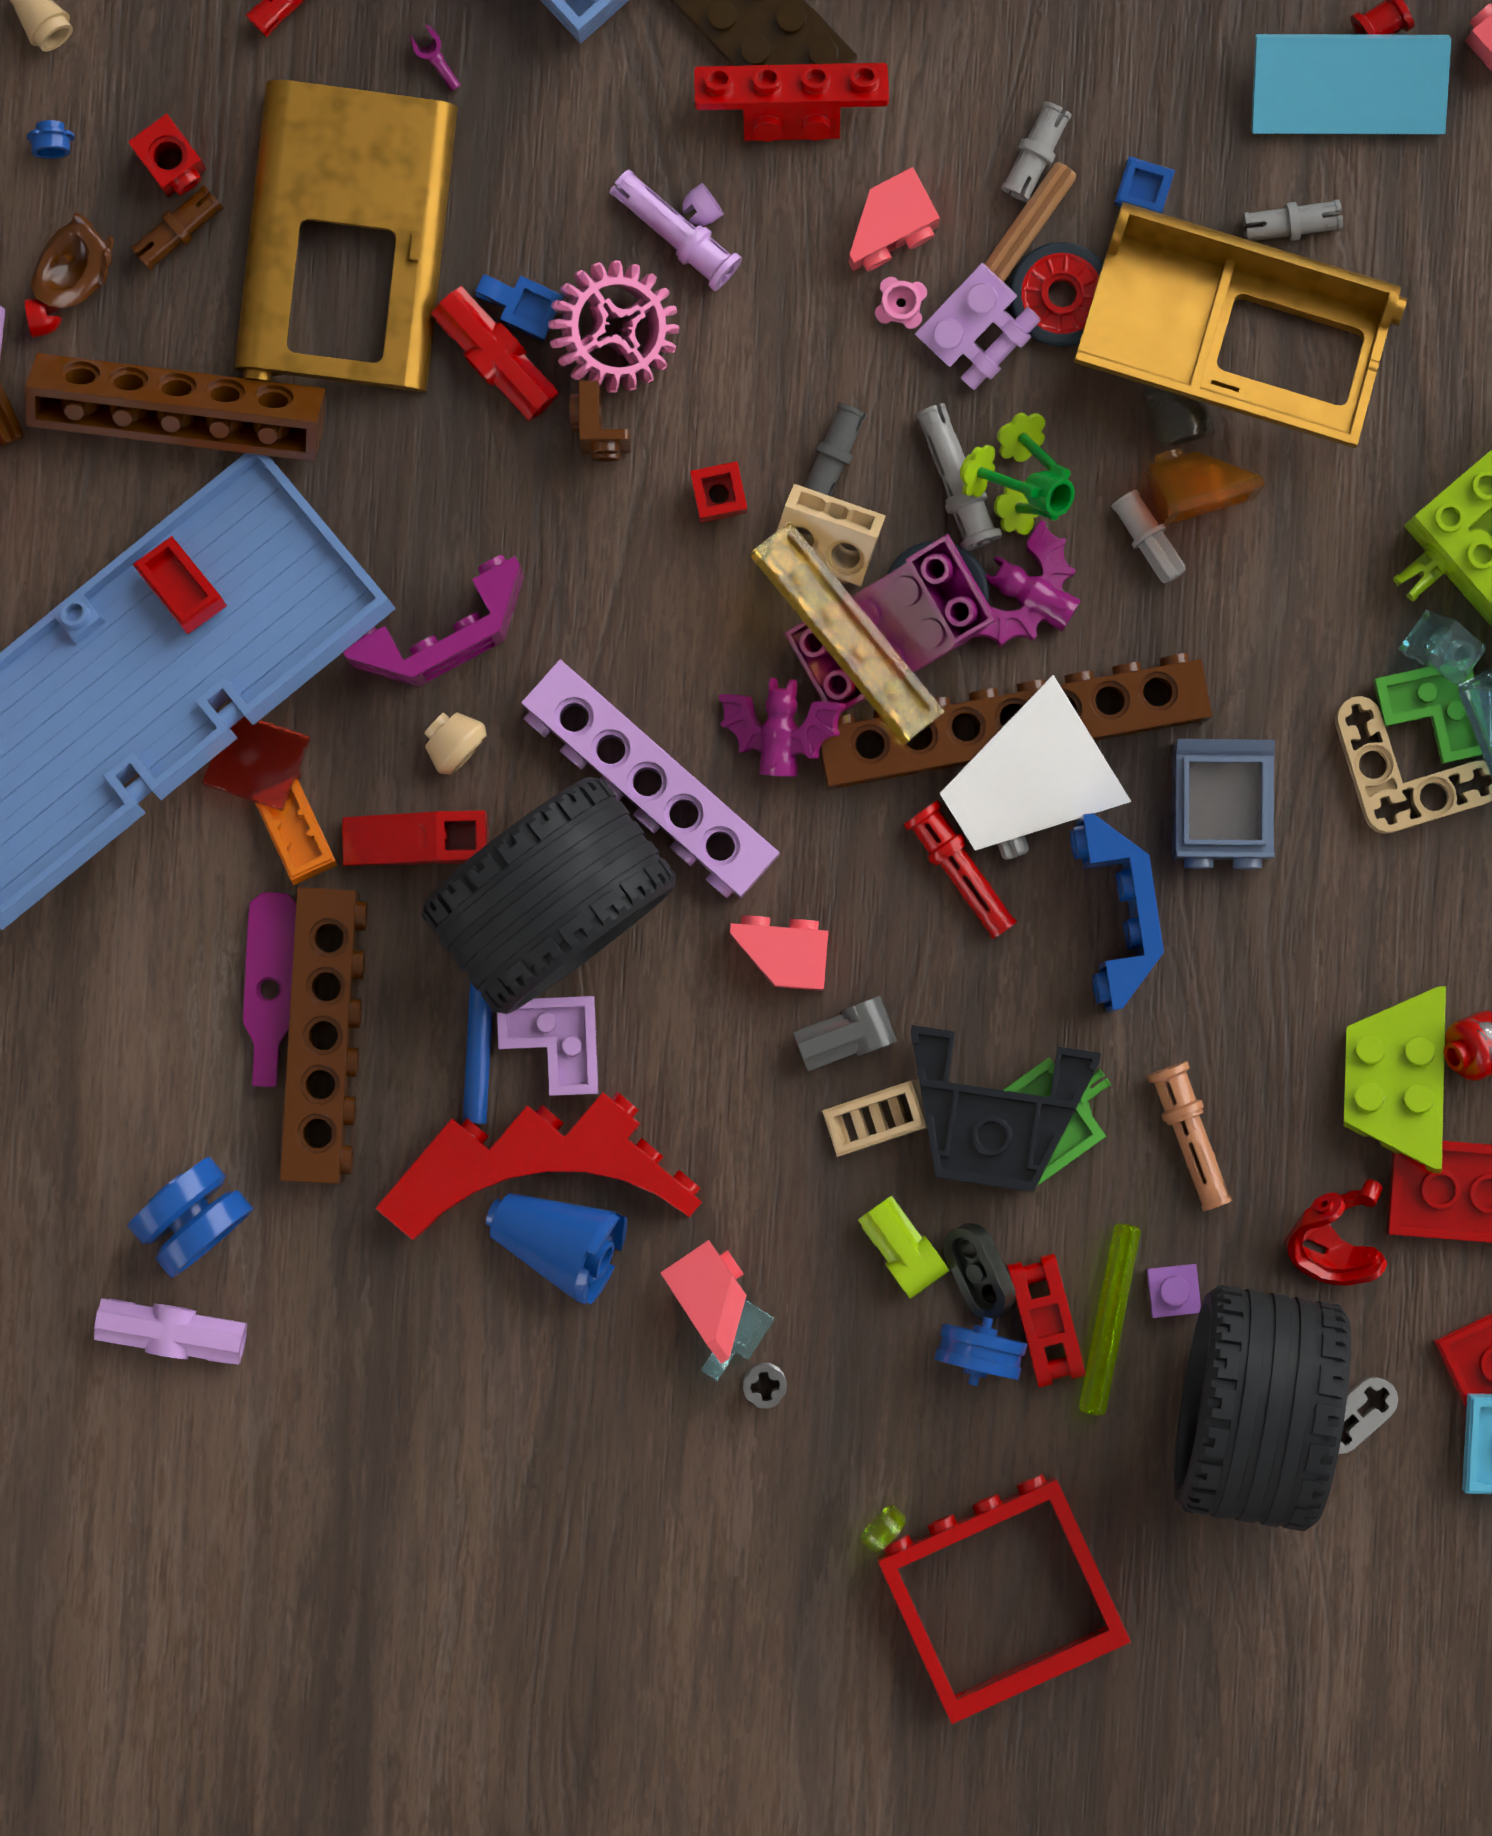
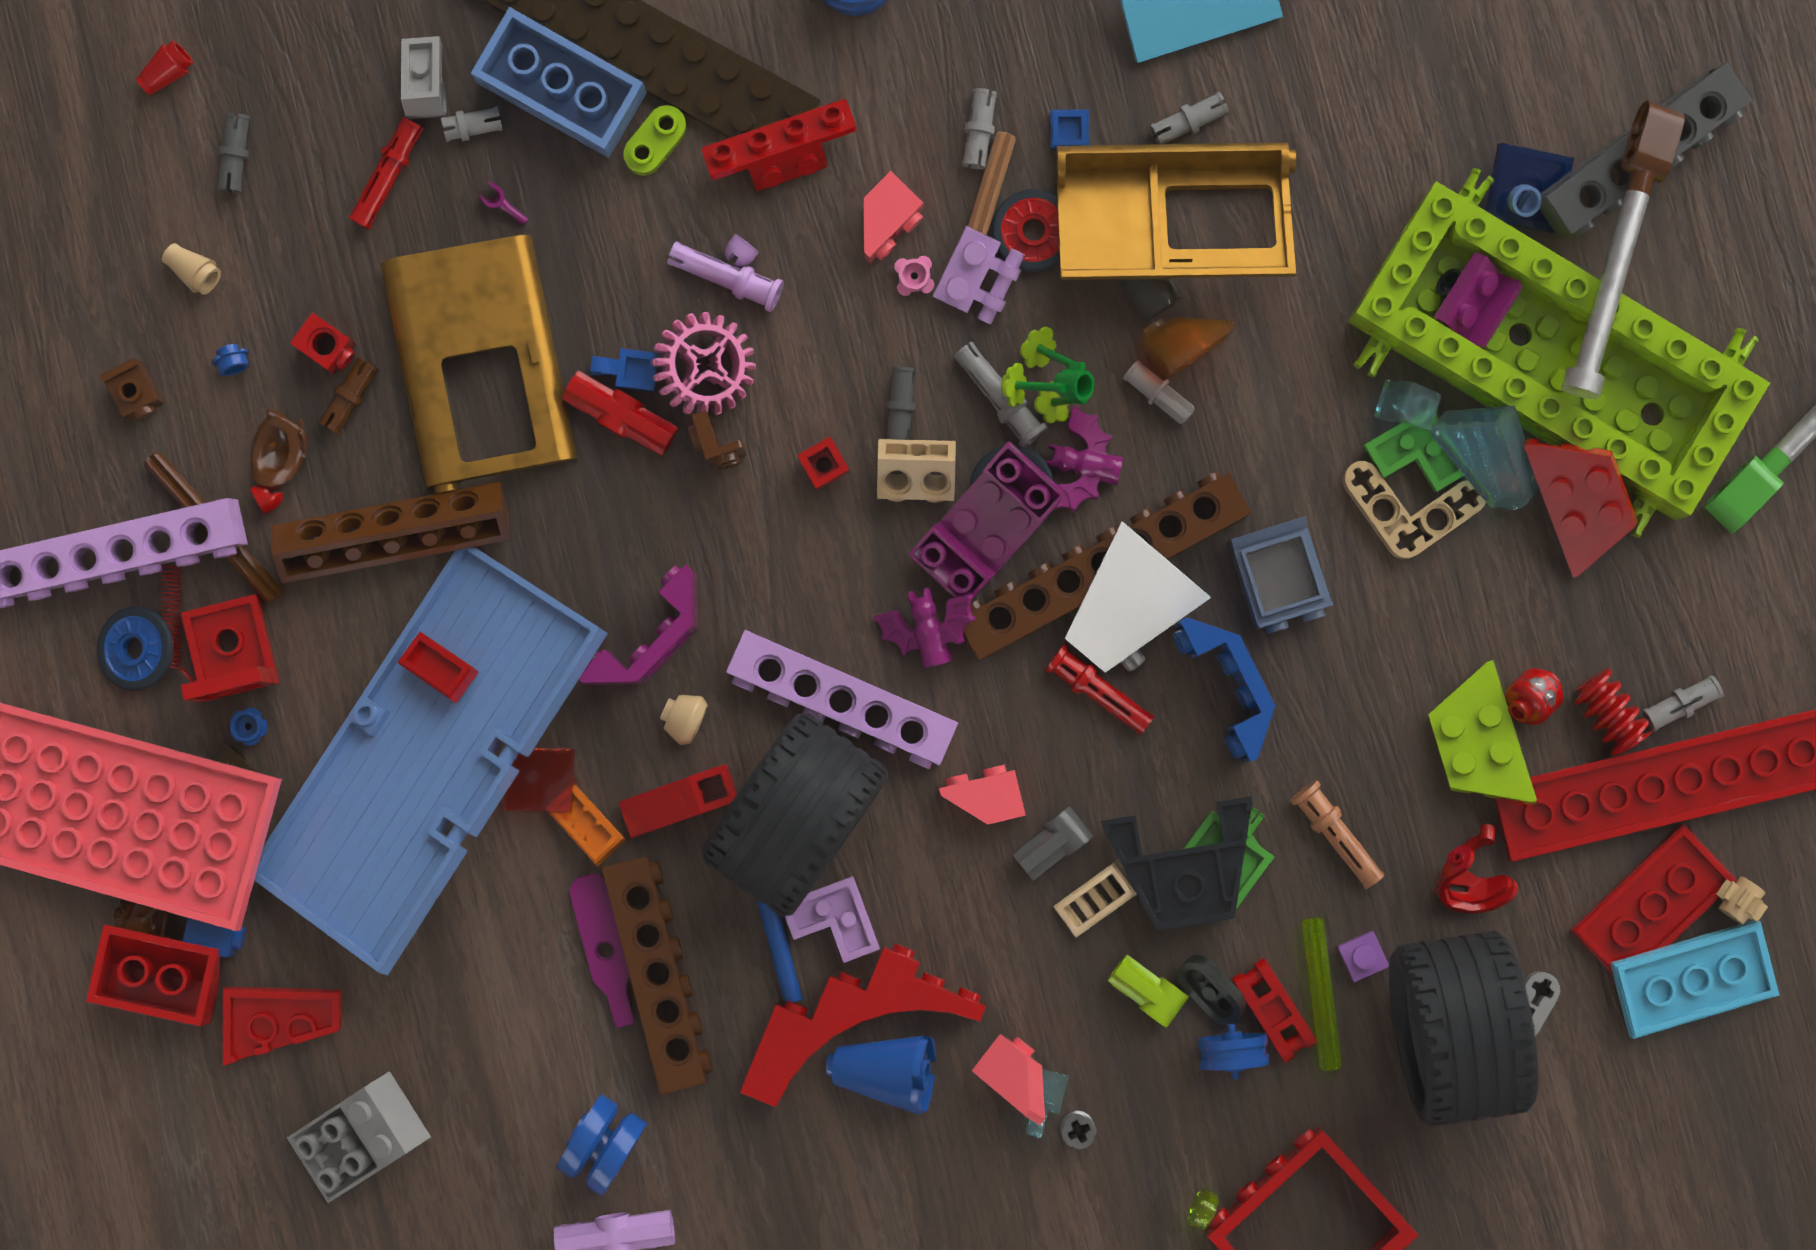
camera: 15 degrees left, 0 degrees up
(645, 41) = (656, 140): none -> lime plate
(846, 633) = (956, 540): clear yellow plate -> none

